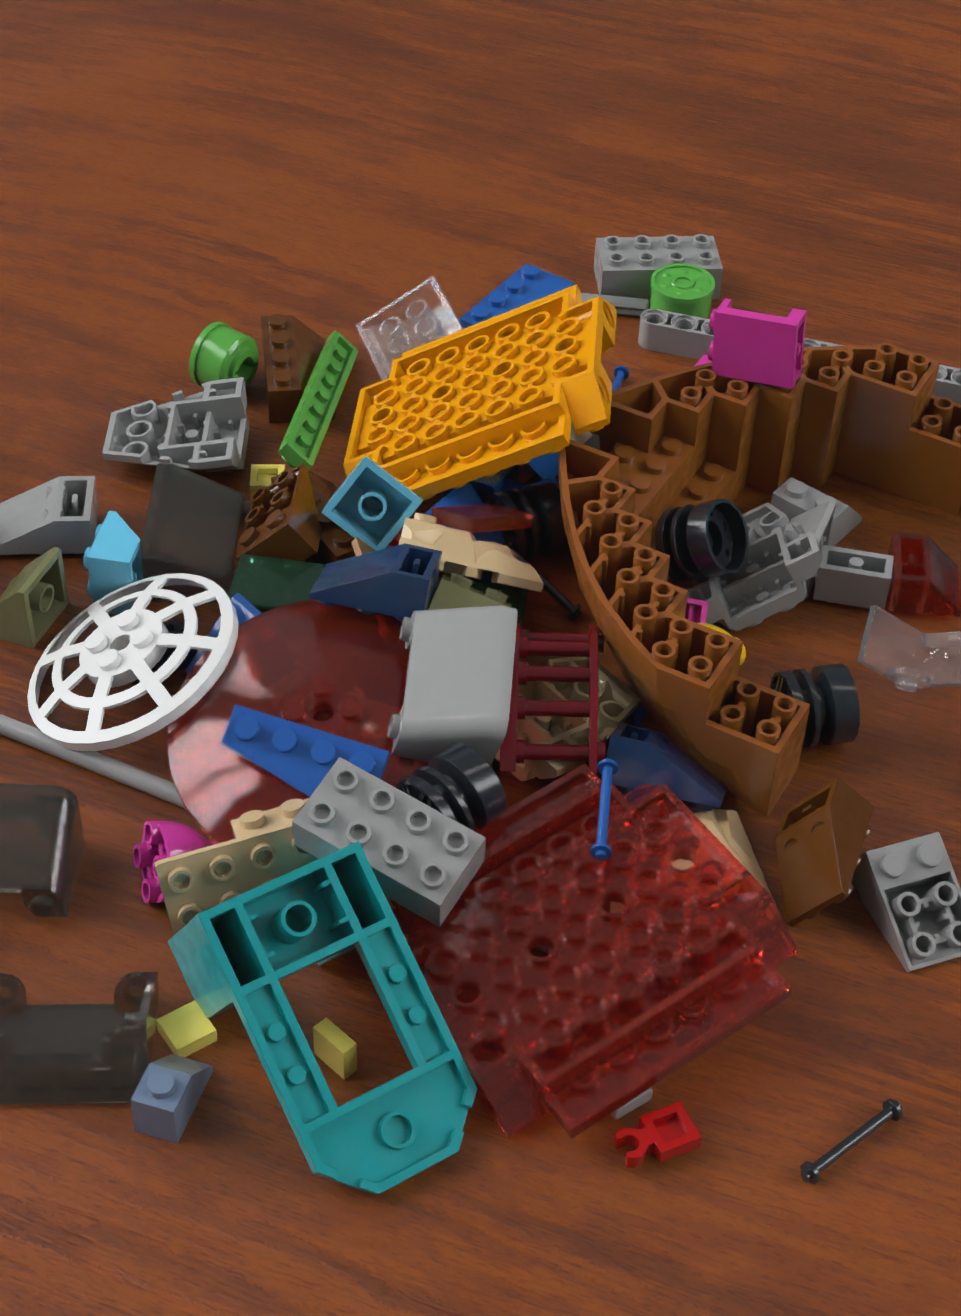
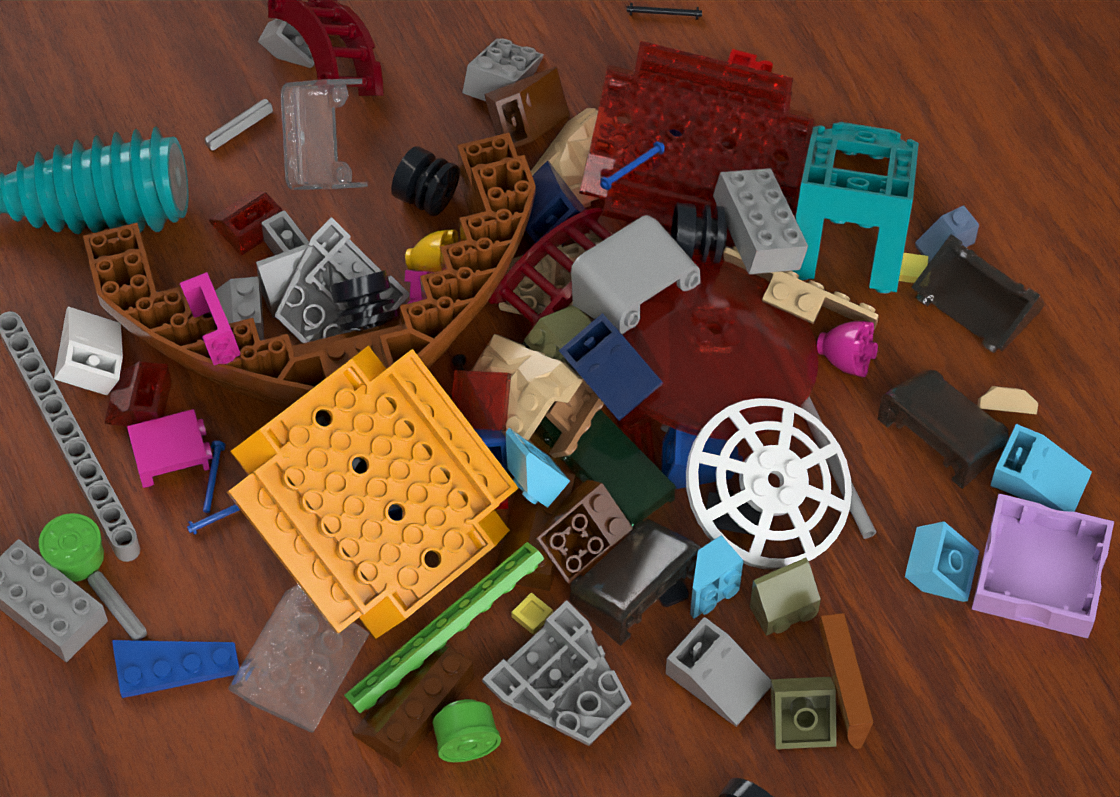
camera: 135 degrees left, 15 degrees up
(295, 751) = (749, 306): blue wing -> none

